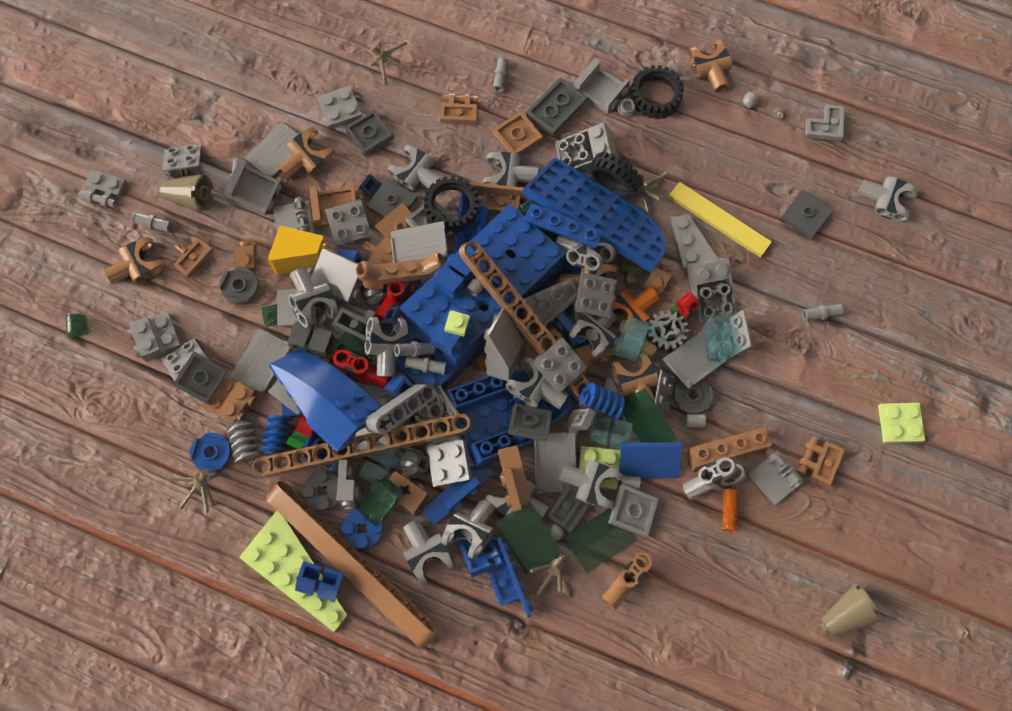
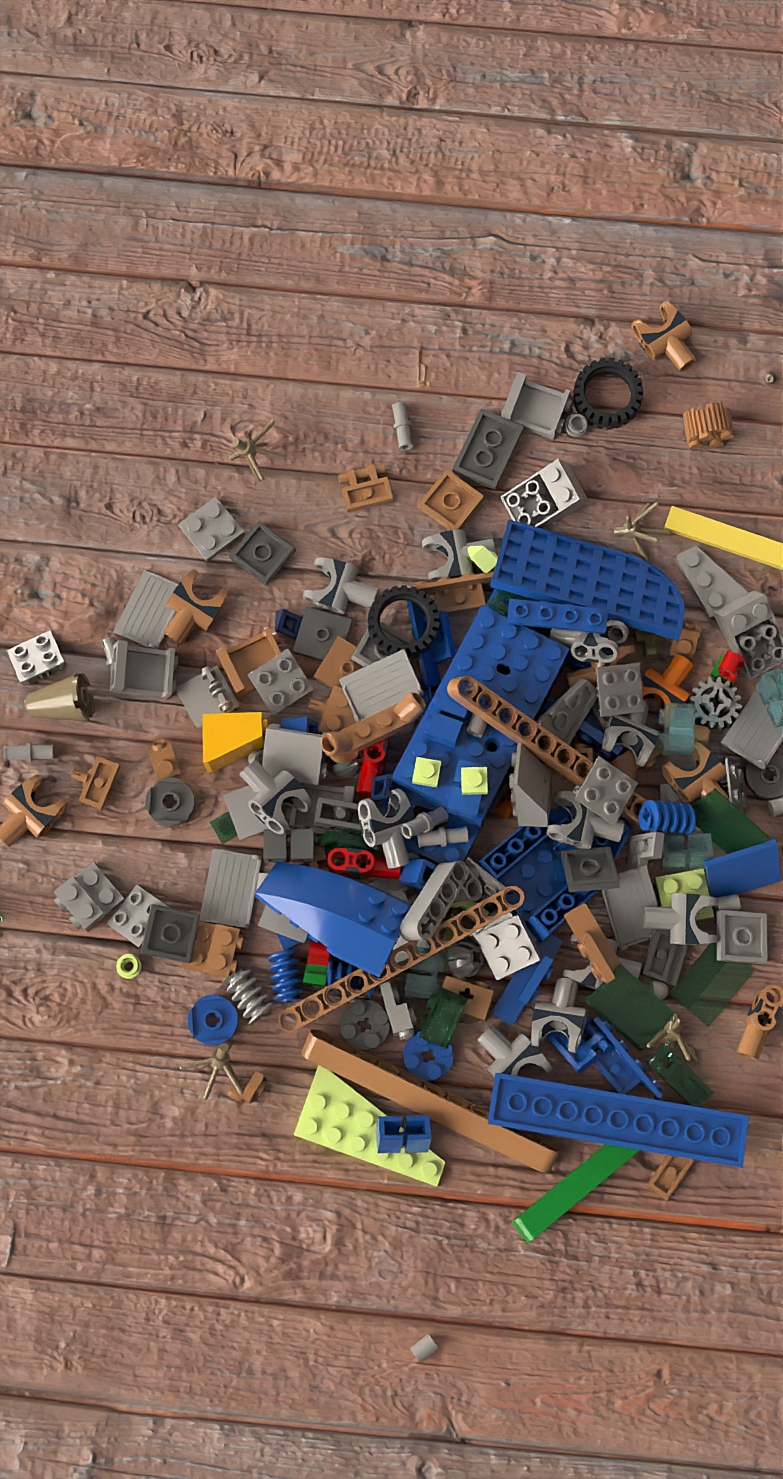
camera: 15 degrees left, 5 degrees up
(163, 389) = (123, 960): none -> yellowish green plate
(221, 512) = (255, 1087): none -> medium nougat bracket
(426, 310) = (426, 772): none -> yellowish green plate
(452, 660) = (571, 1190): none -> green beam
(490, 623) = (618, 1120): none -> blue plate
(524, 175) = (483, 557): none -> yellowish green slope
(528, 671) = (669, 1175): none -> medium nougat tile
(551, 605) = (680, 1077): none -> clear green plate
(605, 166) = (593, 525): black tyre -> none
(723, 131) = (708, 426): none -> medium nougat brick
(750, 100) = (727, 371): light grey hinge -> none

